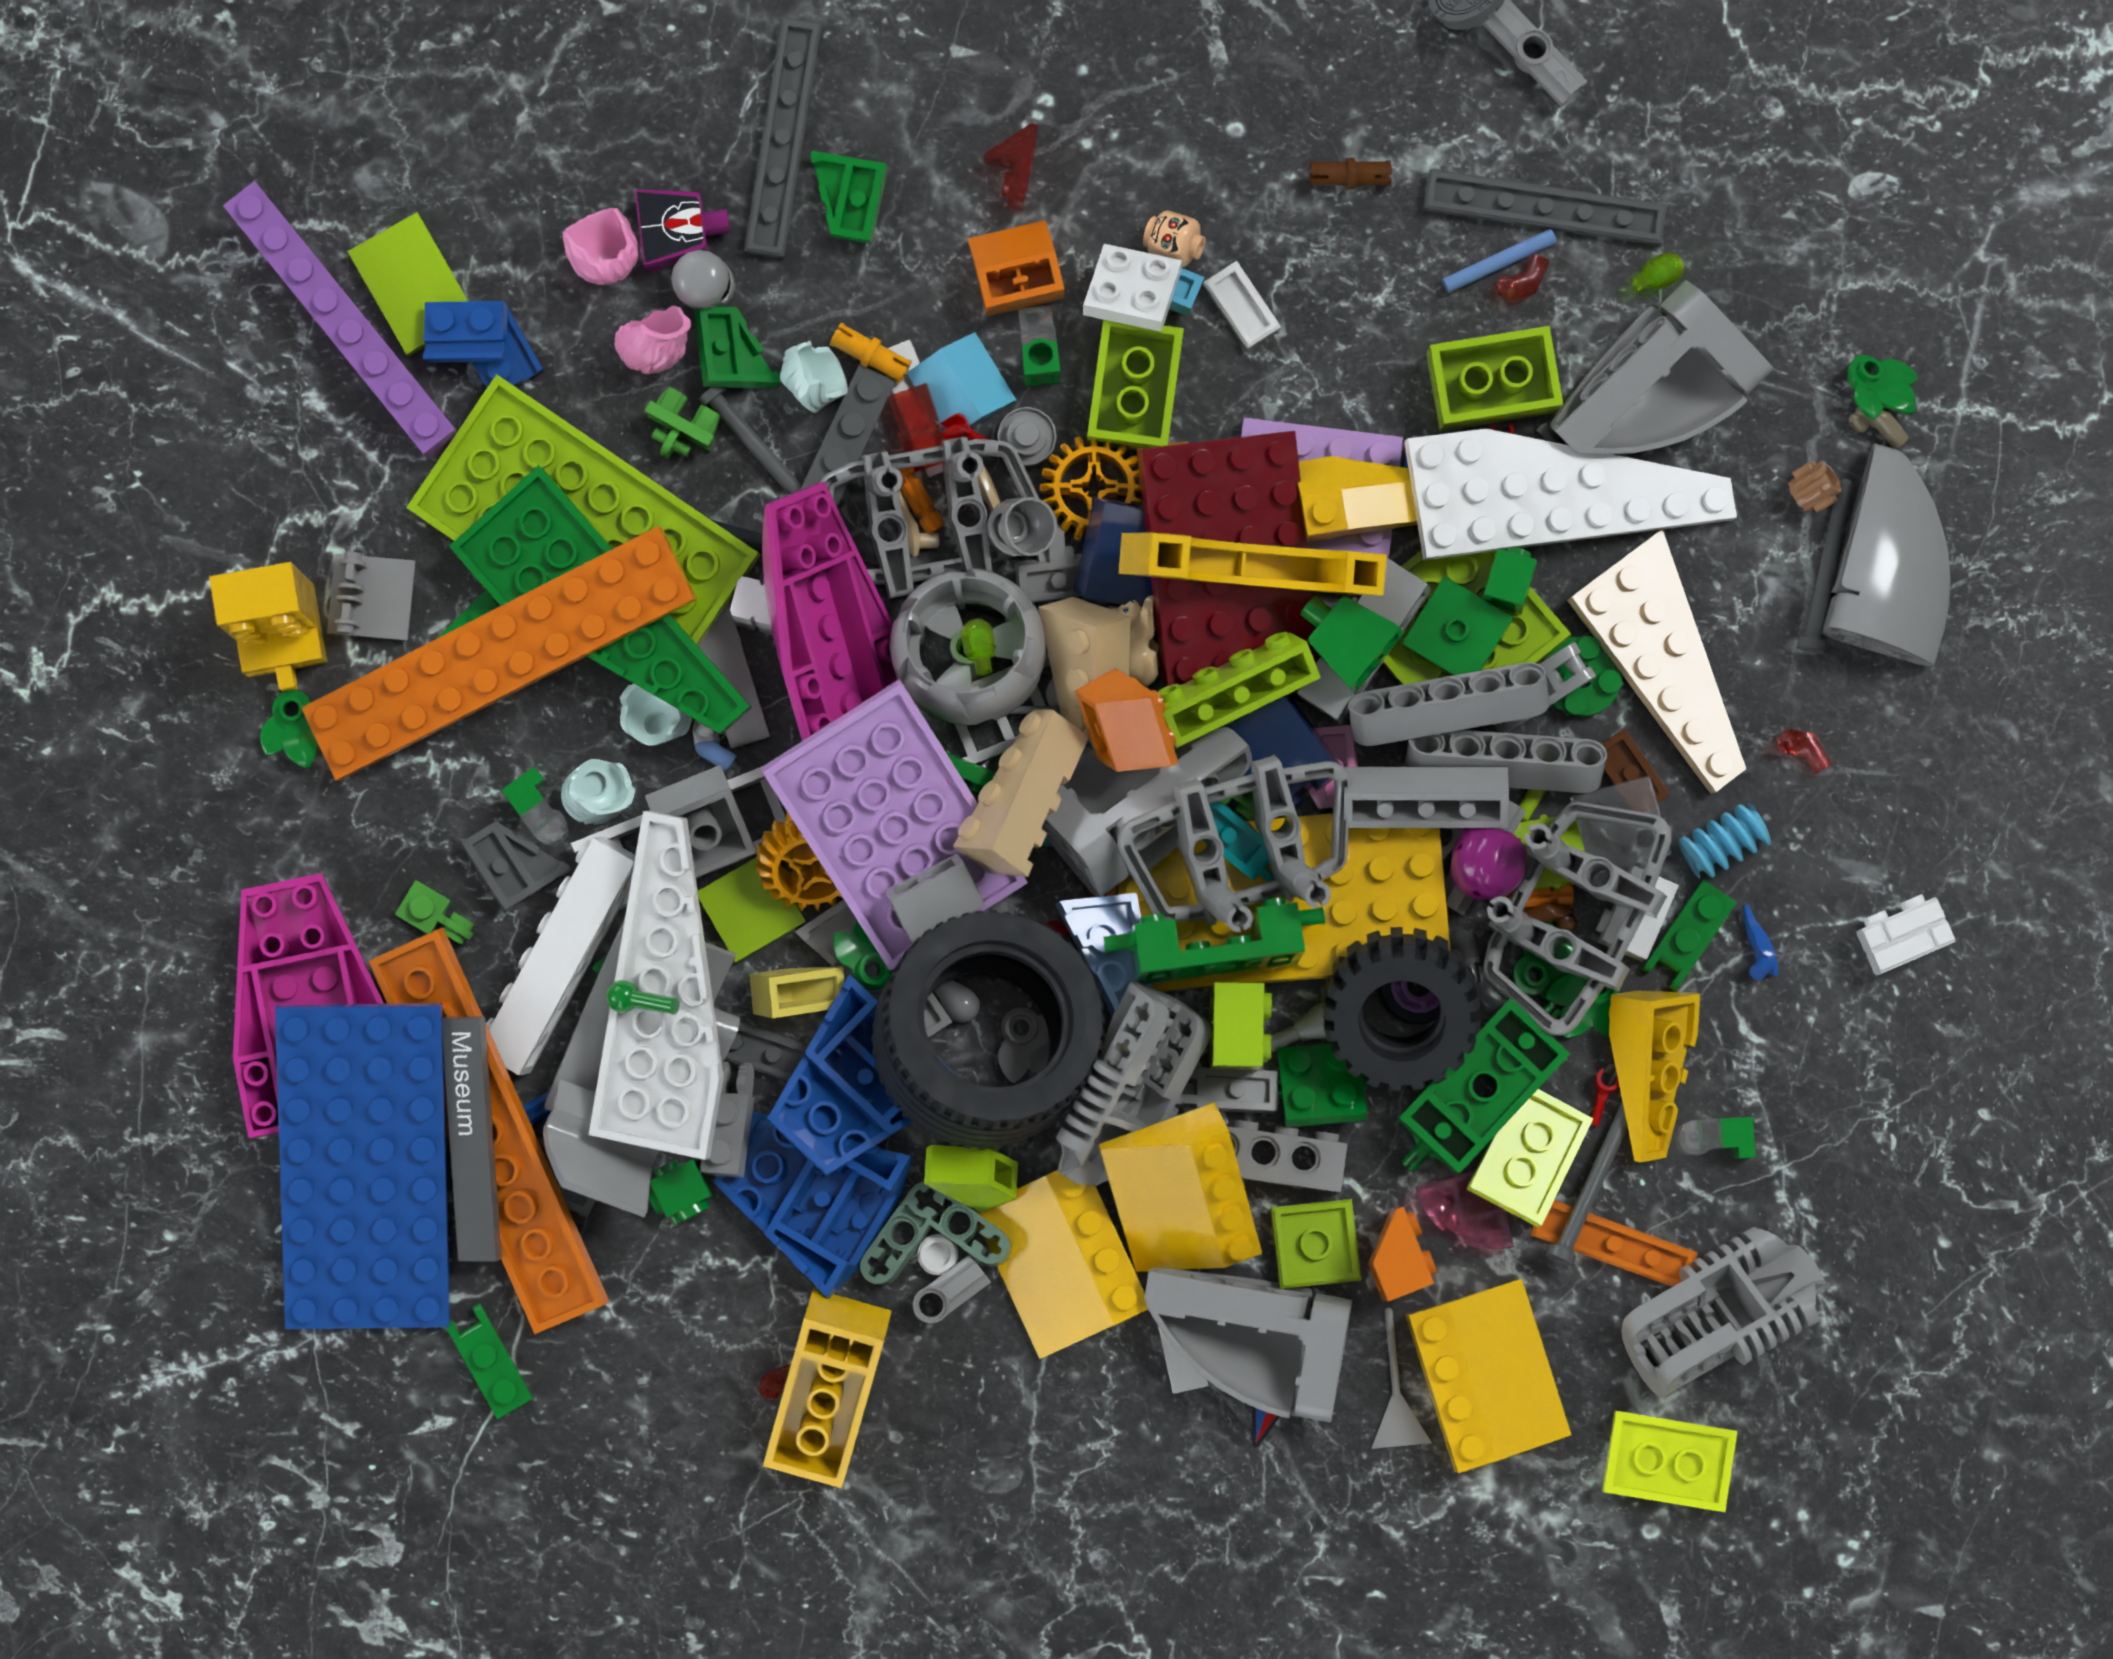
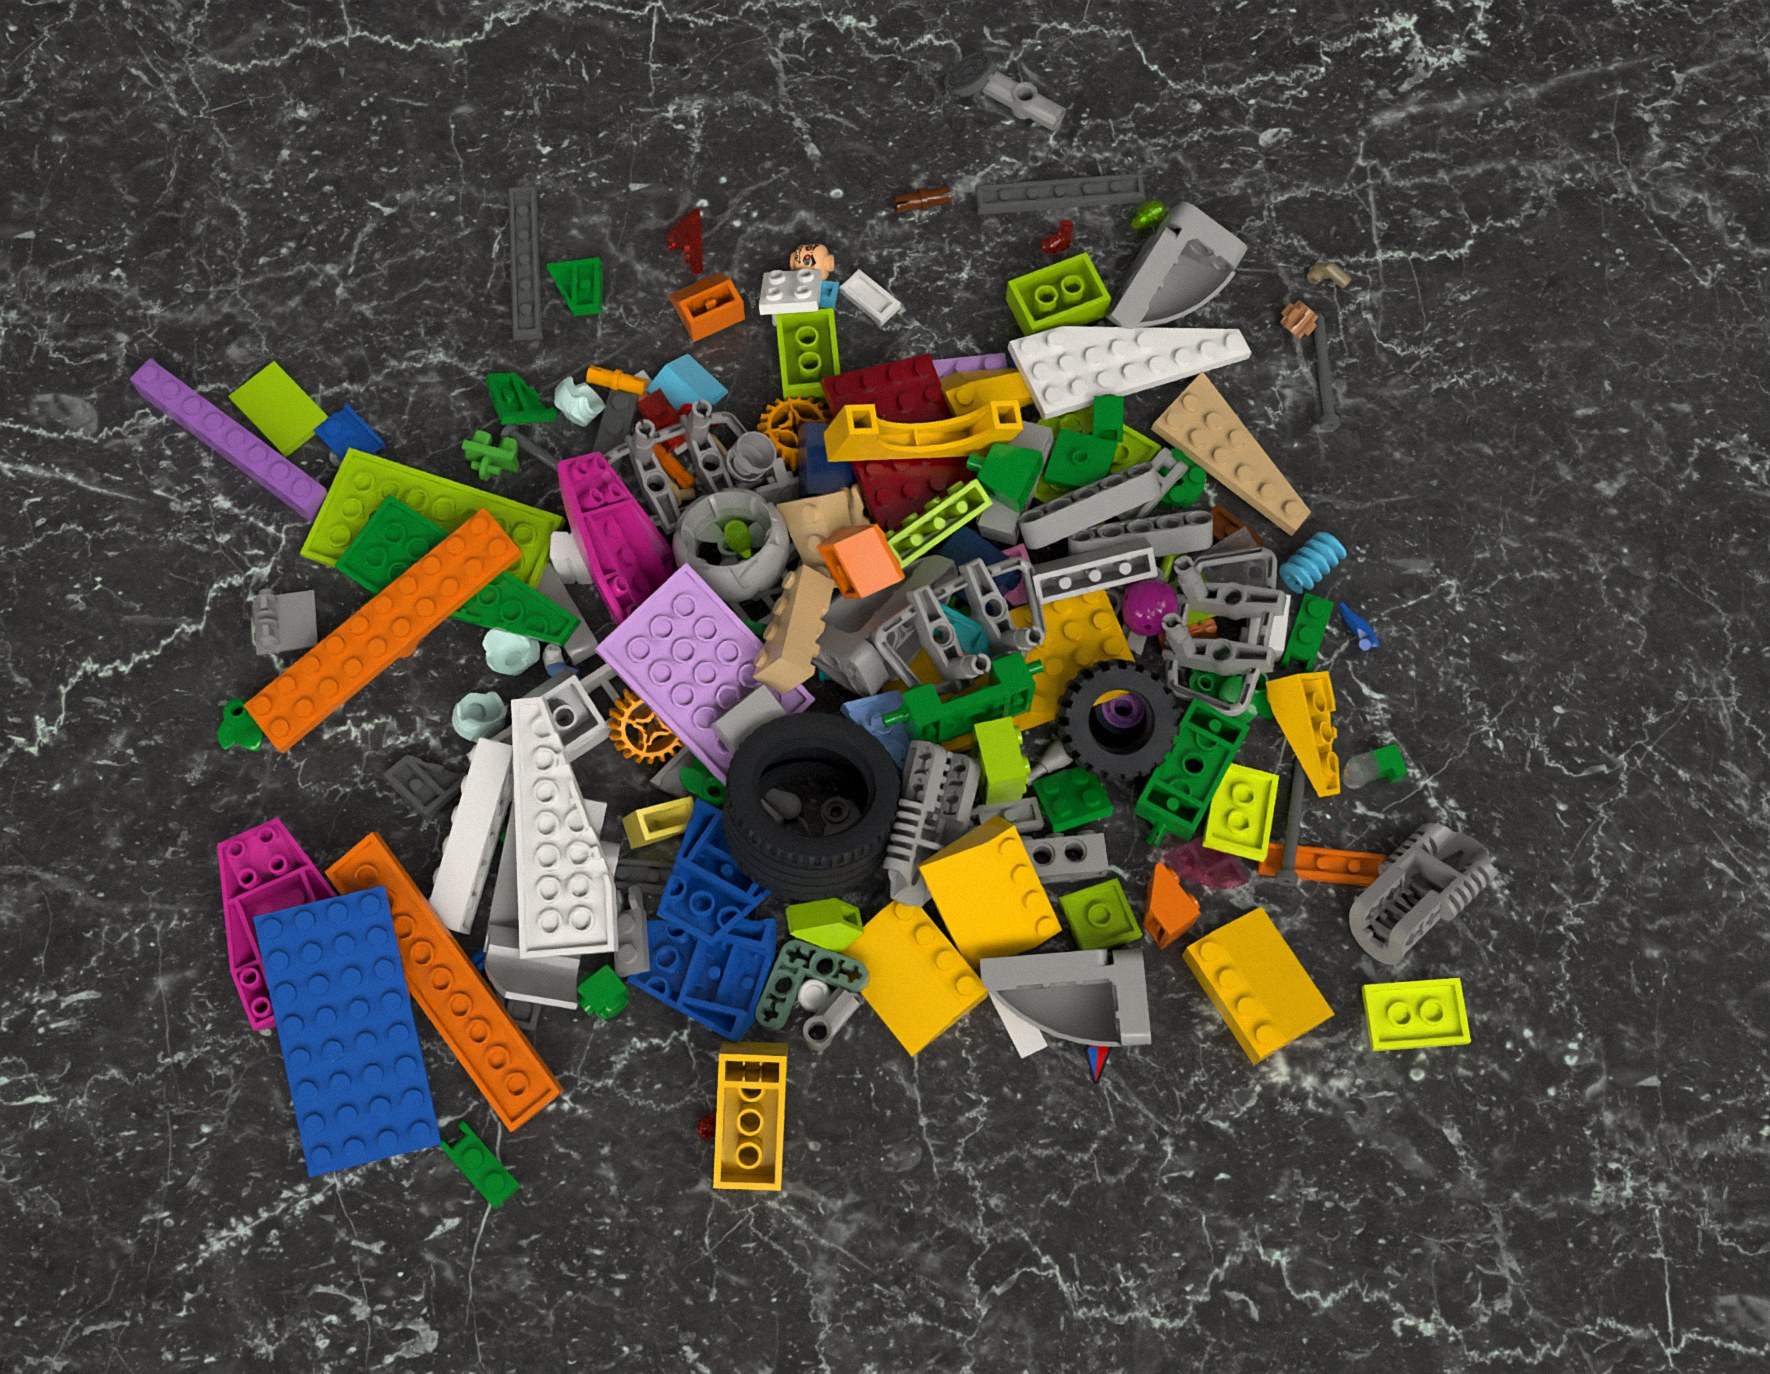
camera: 10 degrees left, 15 degrees down
(272, 619) = (204, 639): yellow hinge -> none
(426, 909) = (363, 825): bright green plate -> none
(465, 331) = (321, 426): blue plate -> none
(471, 1138) = (429, 987): dark grey tile -> none
(543, 821) = (440, 745): leg -> none
(602, 247) = (410, 352): bright pink hair -> none
(624, 996) = (525, 842): green bar -> none
(654, 341) = (458, 404): bright pink hair -> none
(674, 225) = (460, 330): torso -> none
(702, 280) = (484, 357): light grey helmet -> none
(746, 911) = (611, 776): lime tile -> none
(1030, 434) = (743, 405): light grey plate -> none
(1039, 346) = (735, 351): leg -> none
(1399, 1423) = (1201, 1039): light grey piece -> none
(1499, 261) = (1038, 232): medium blue bar -> none
(1601, 1096) = (1279, 756): red hand -> none
(1803, 744) = (1347, 489): clear red arm -> none
(1882, 385) = (1322, 249): green plate -> none
(1892, 566) = (1368, 360): light grey panel -> none
(1905, 935) = (1461, 596): white brick -> none

